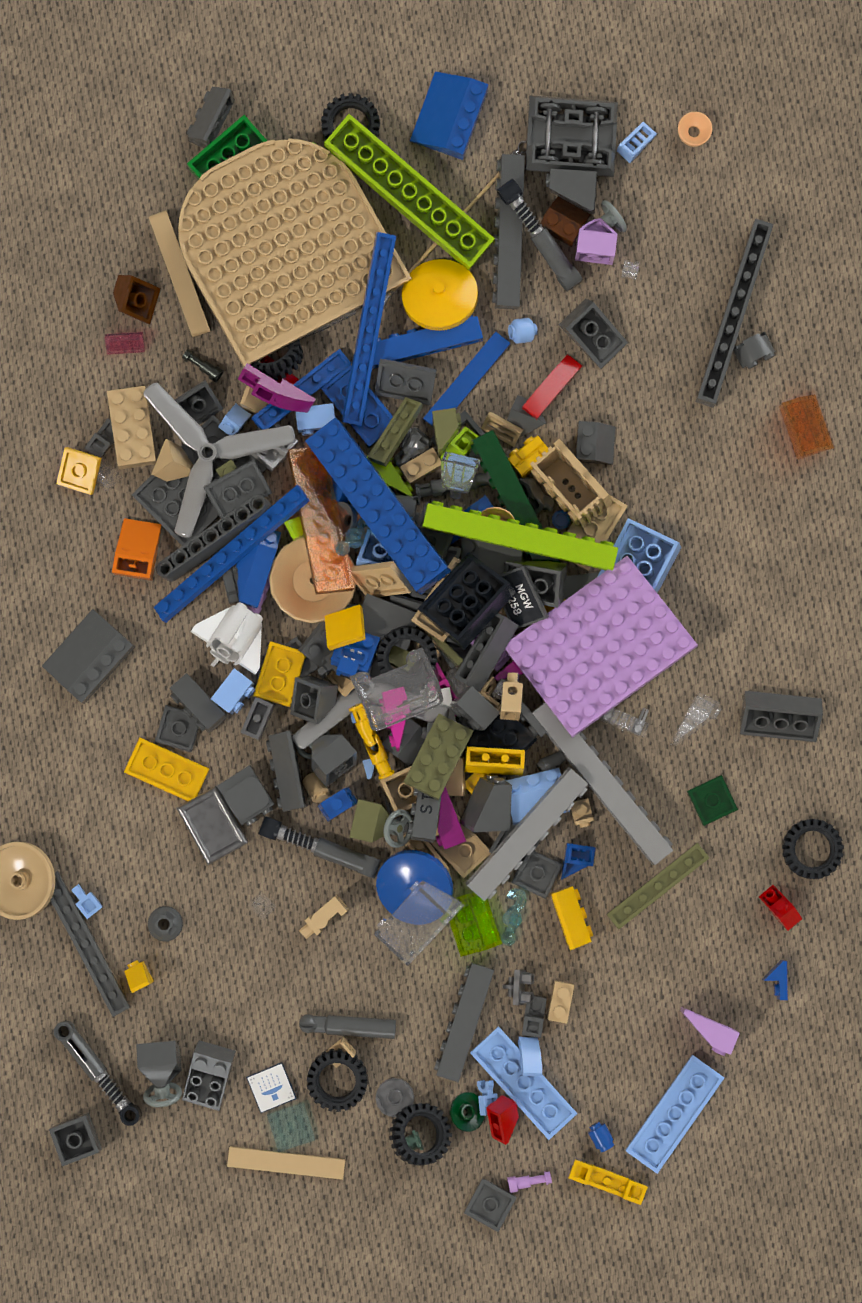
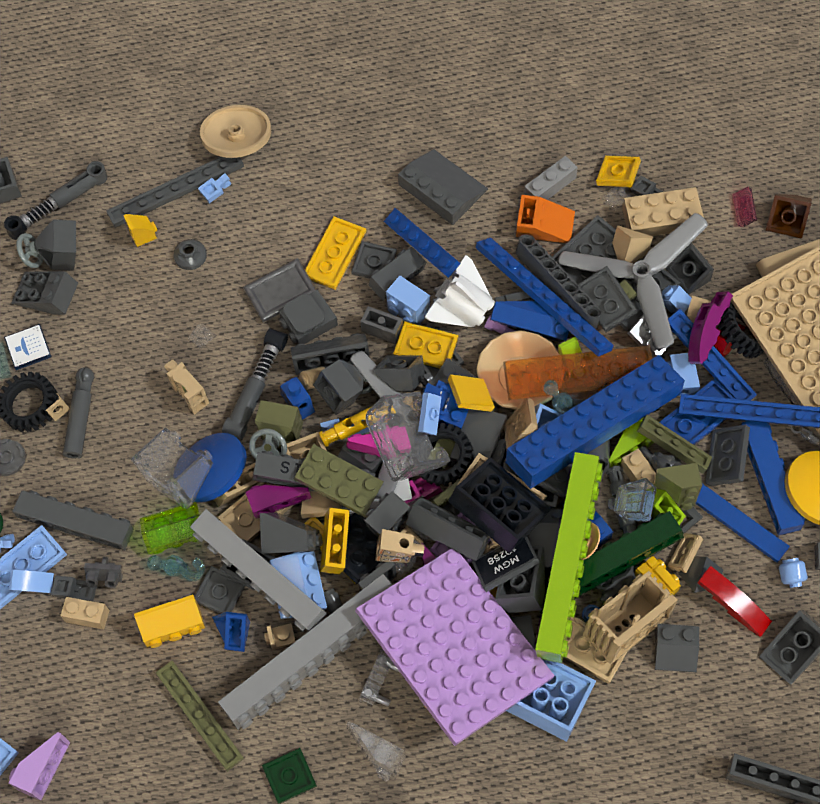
camera: 90 degrees right, 20 degrees down
(89, 542) = (552, 179): none -> light grey brick
(166, 677) = (422, 242): none -> blue plate
(213, 372) = (723, 282): pearl dark grey piece -> none
(372, 667) = (429, 414): none -> light blue plate

